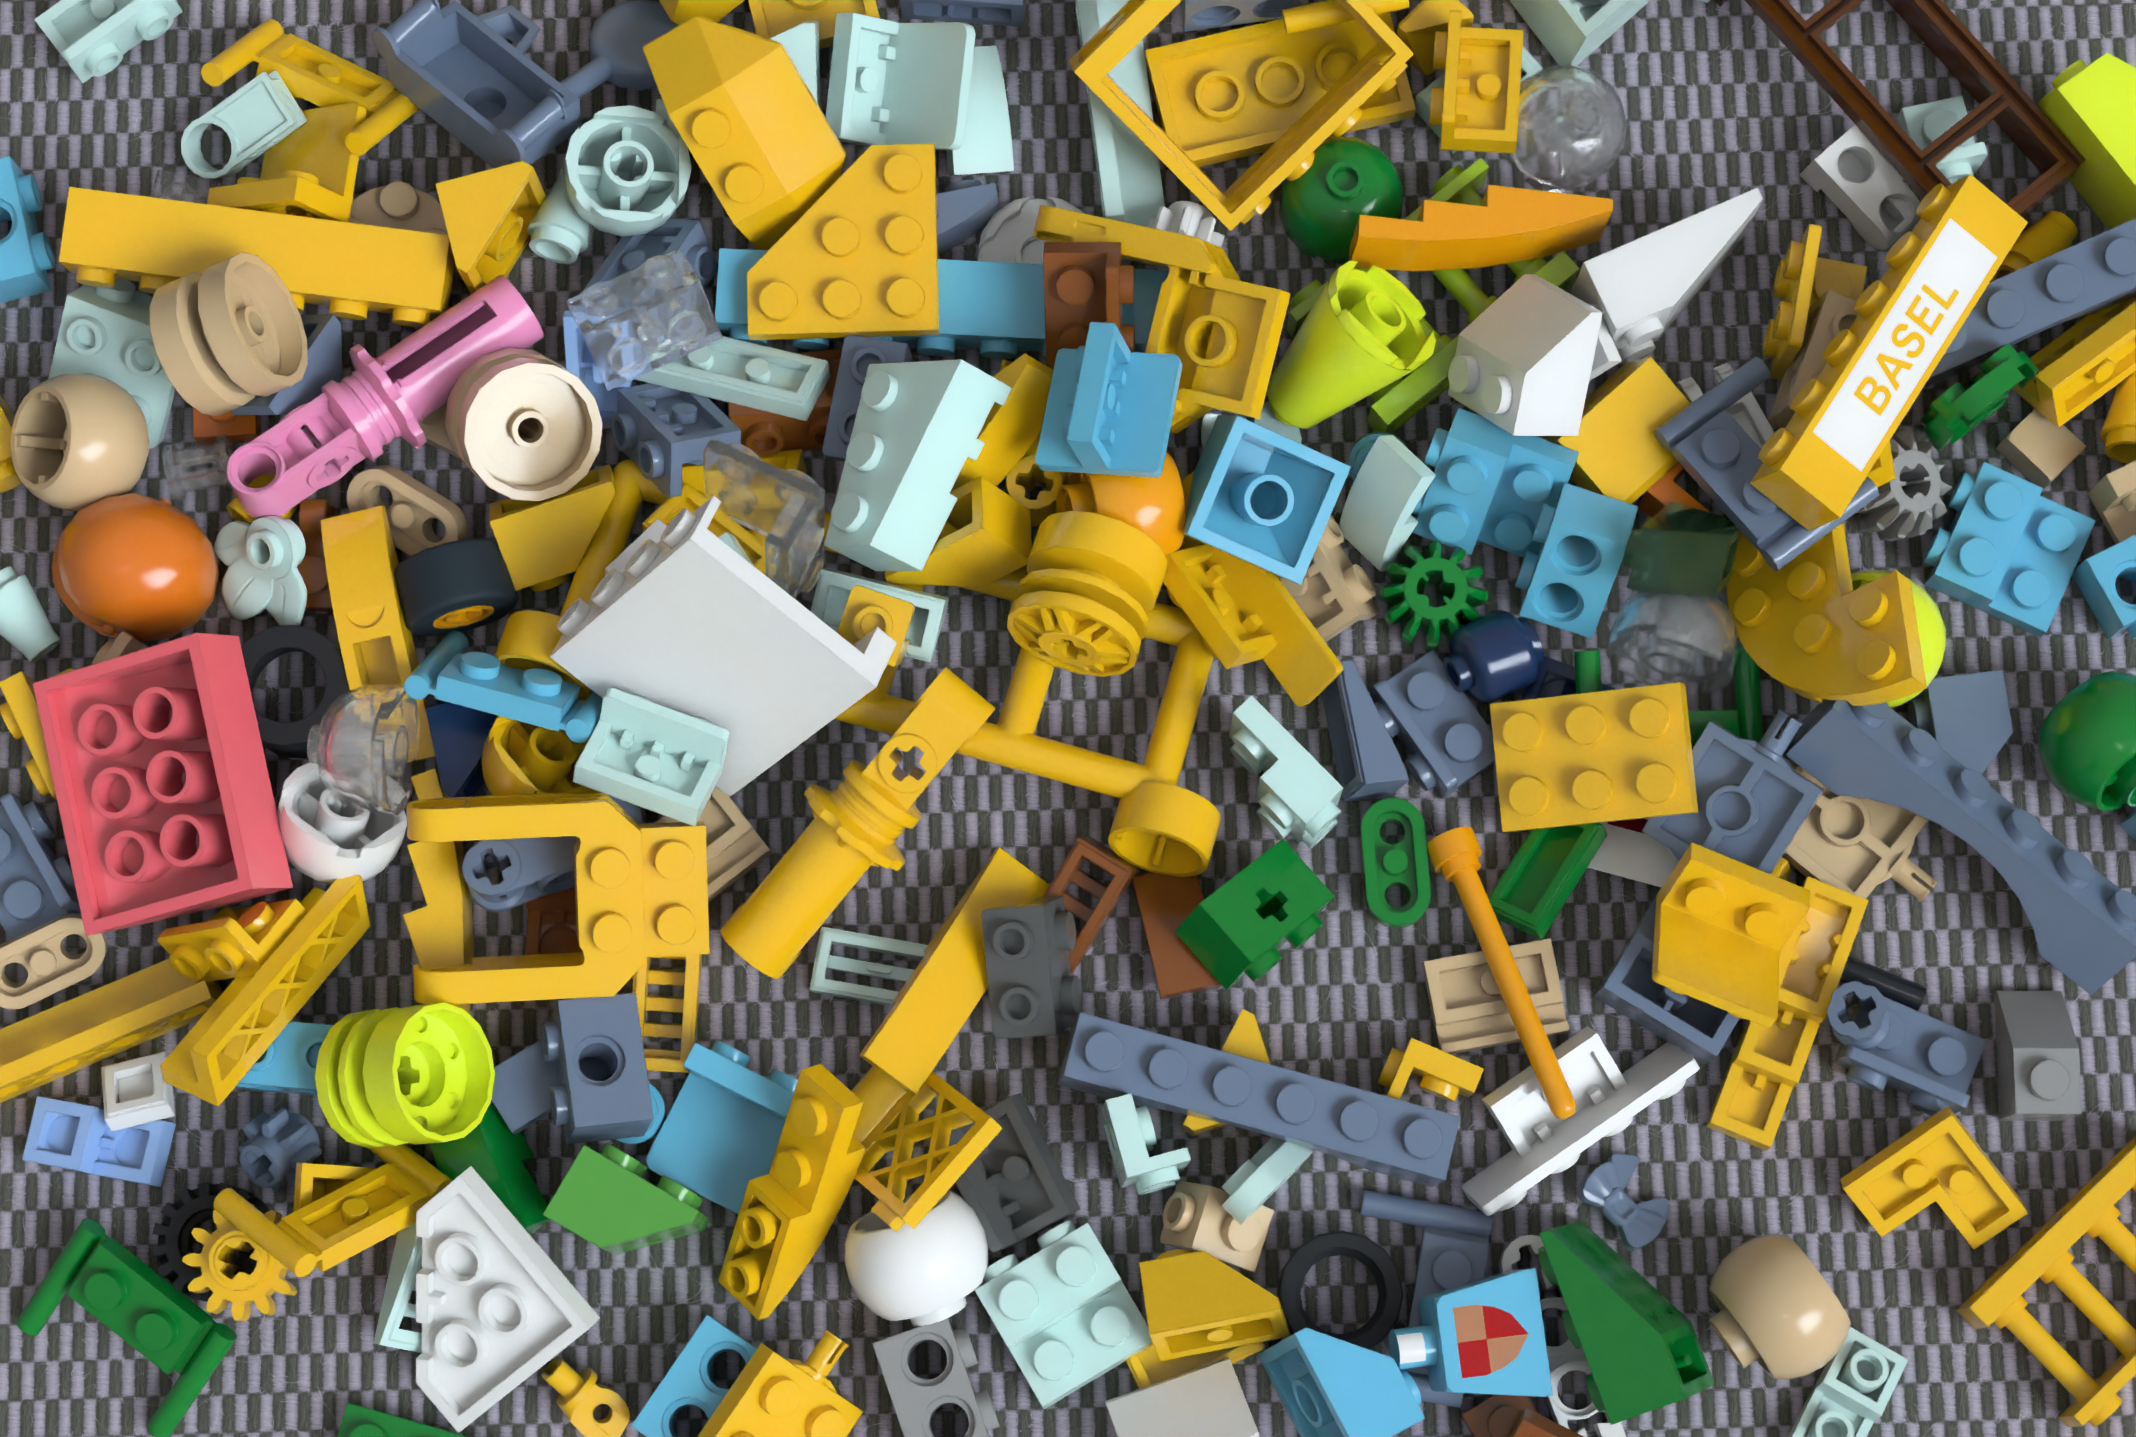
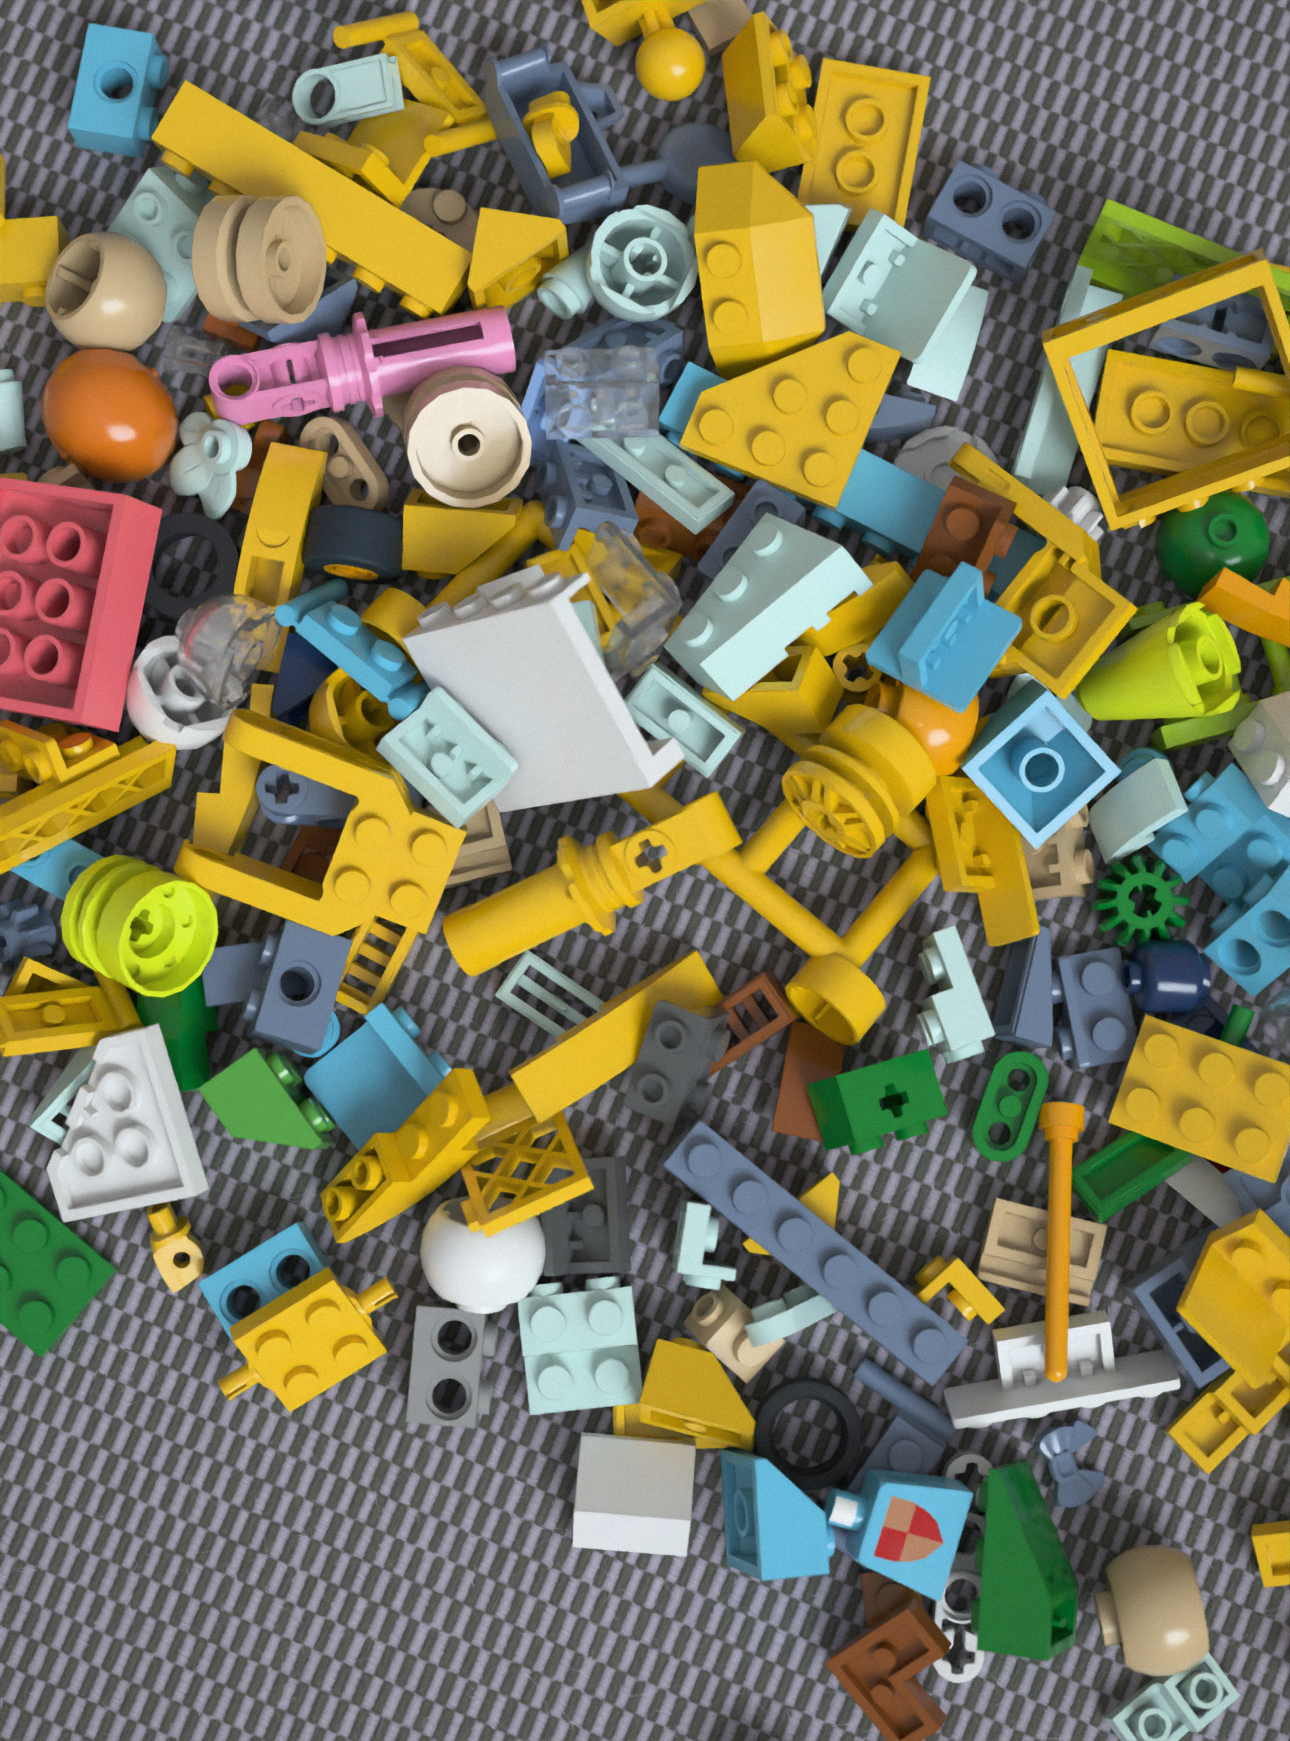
camera: 25 degrees right, 5 degrees up
(472, 72) = (551, 128): none -> yellow piece
(874, 609) = (677, 720): yellow bracket -> none

